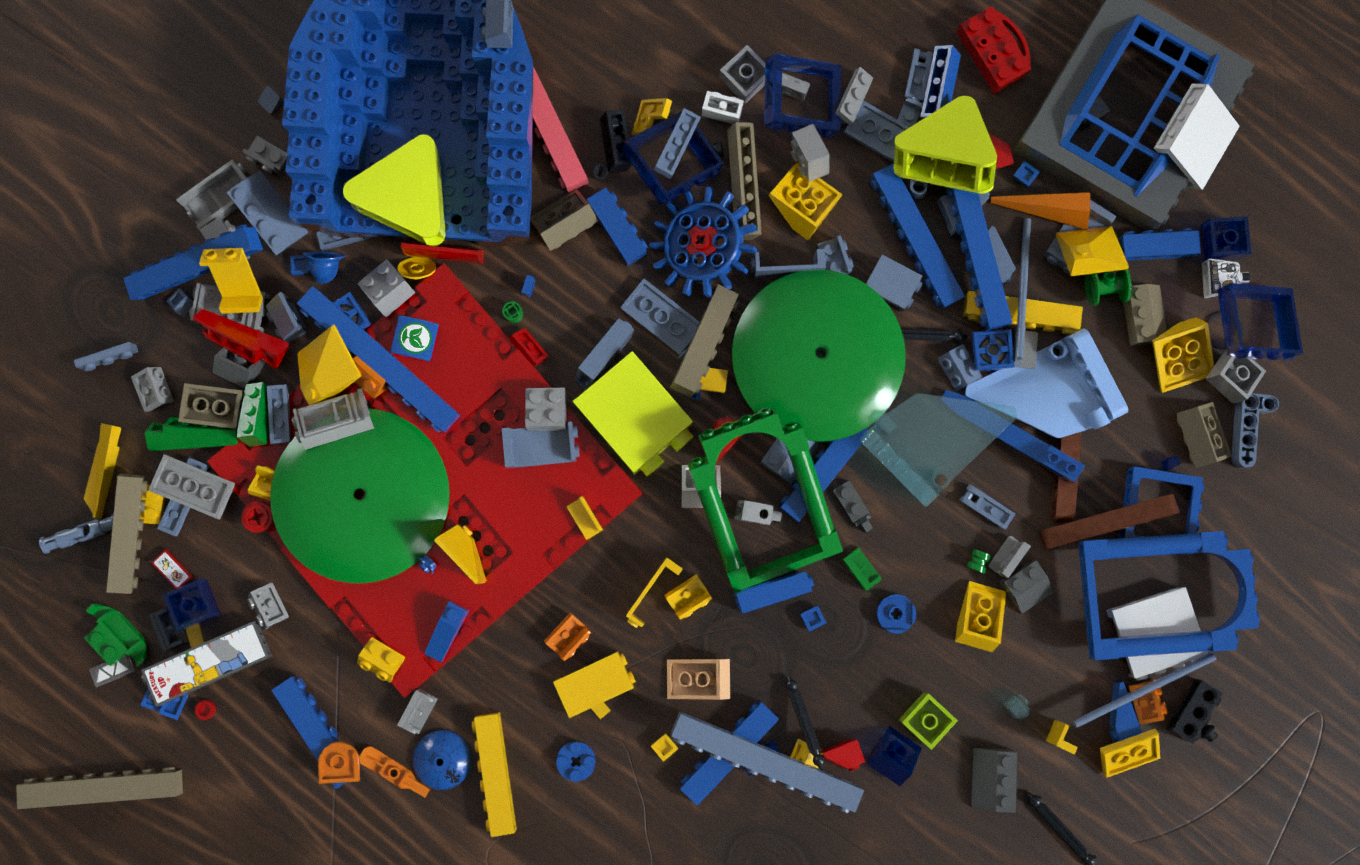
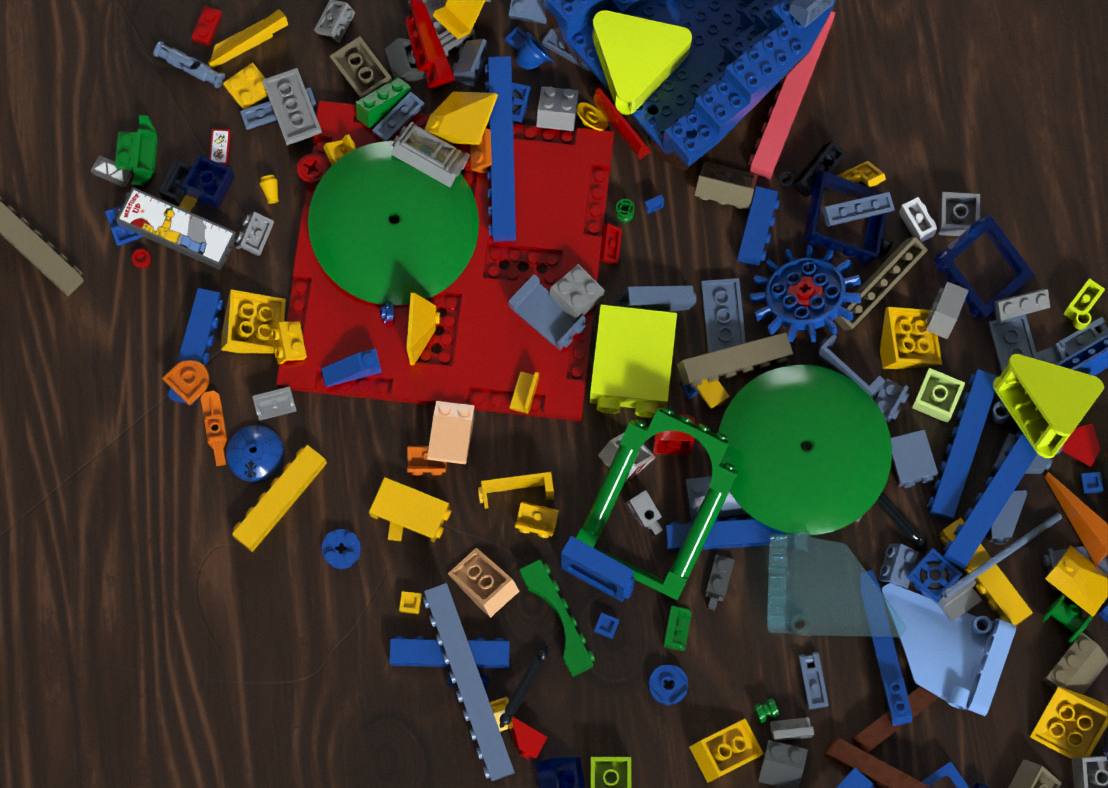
camera: 50 degrees right, 10 degrees down
(61, 490) = (206, 25): none -> red plate
(125, 533) = (217, 93): dark tan brick -> none
(187, 435) = (324, 71): green wedge -> none
(242, 561) = (270, 188): none -> yellow cone
(335, 672) = (250, 322): none -> yellow slope
(414, 338) = (540, 159): slope -> none
(565, 601) = (451, 432): none -> light nougat slope
(794, 87) = (984, 254): light grey bracket -> none
(814, 661) = (538, 581): none -> green arch
(865, 220) = (938, 395): none -> yellowish green brick
(894, 51) = (1083, 303): none -> neon yellow hinge

